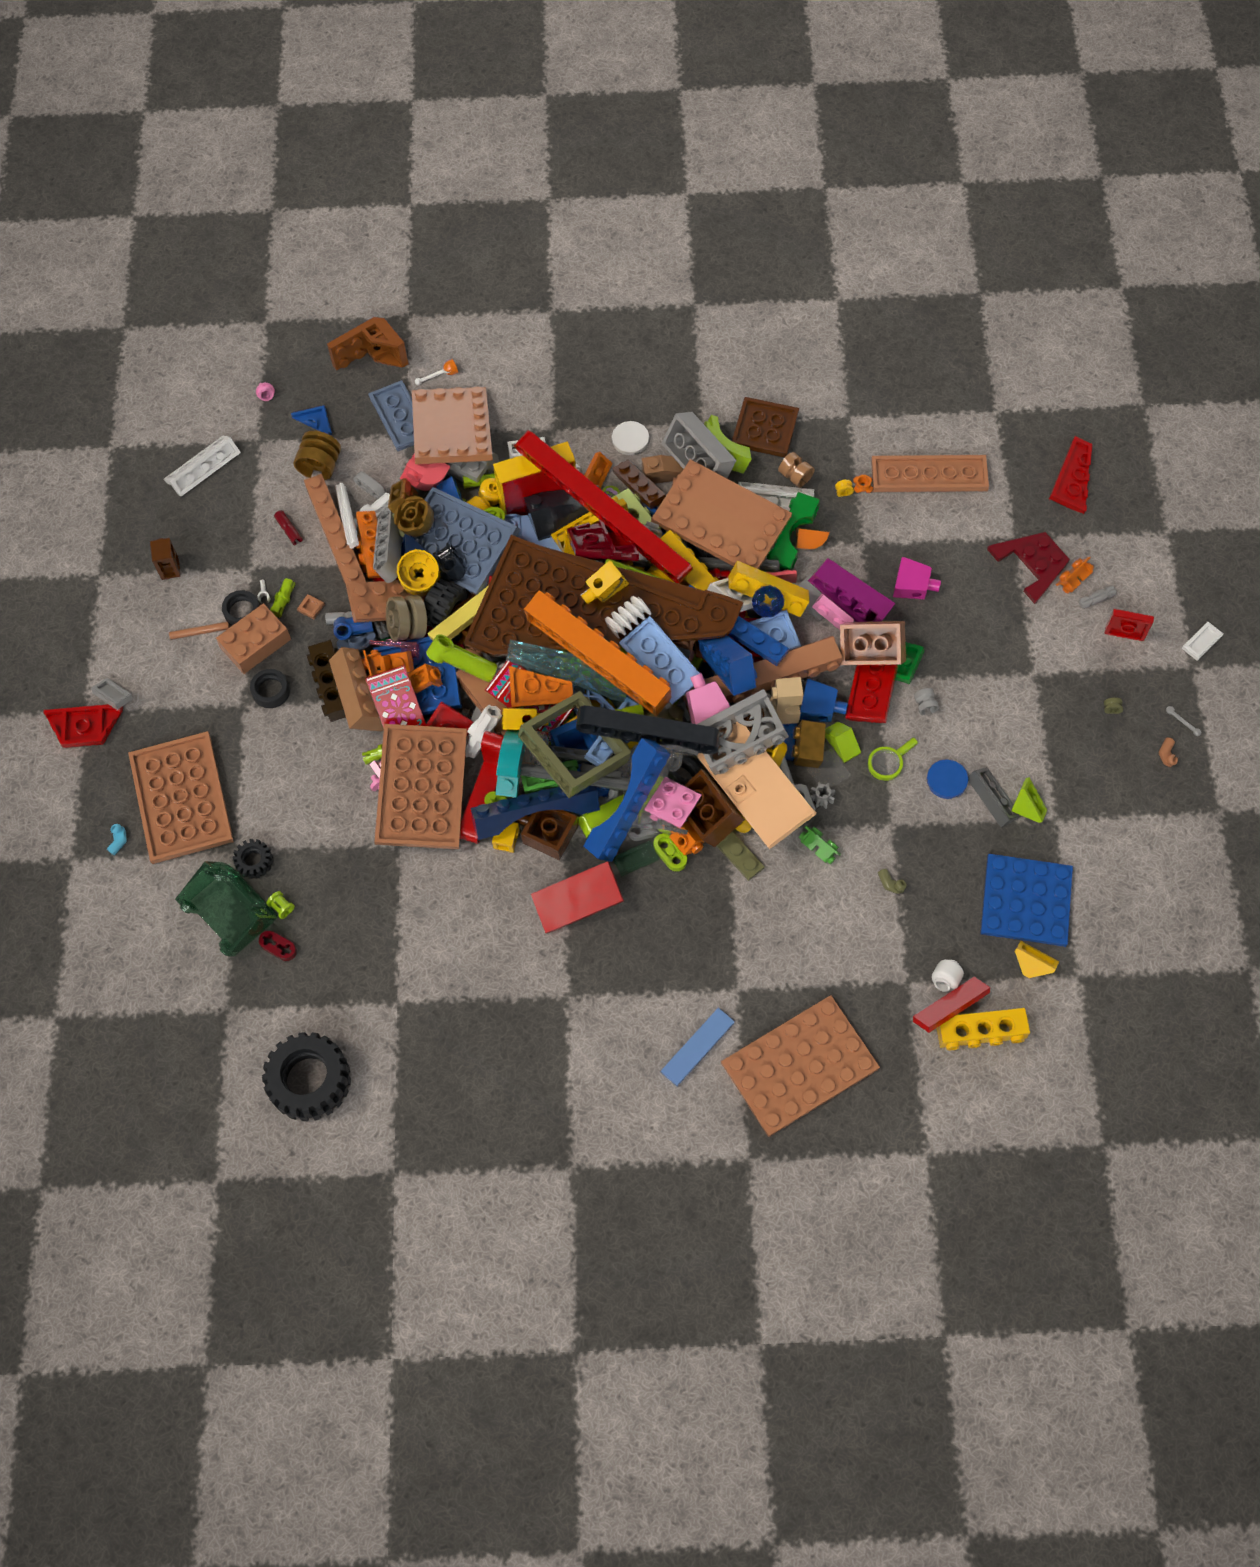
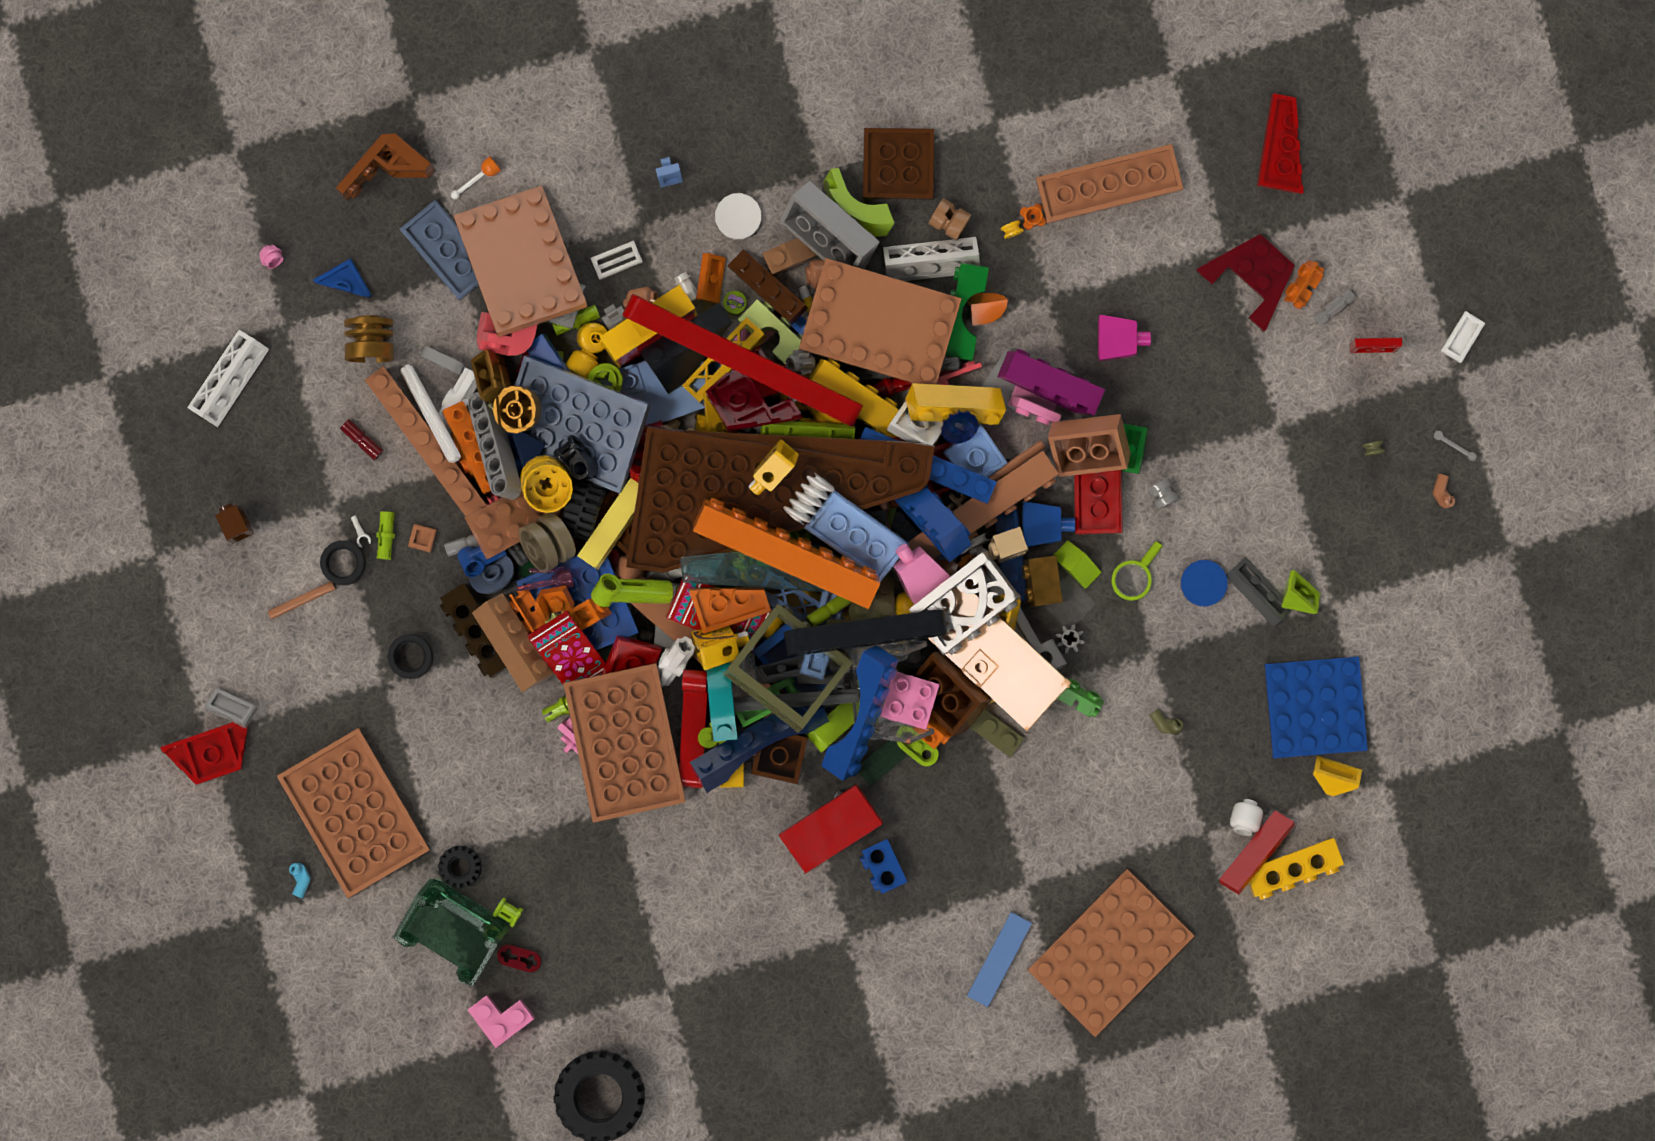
camera: 15 degrees left, 20 degrees up
(243, 995) = (500, 1025): none -> bright pink brick
(253, 638) = (371, 599): nougat brick -> none
(584, 397) = (668, 173): none -> medium blue tile
(619, 941) = (889, 863): none -> blue brick

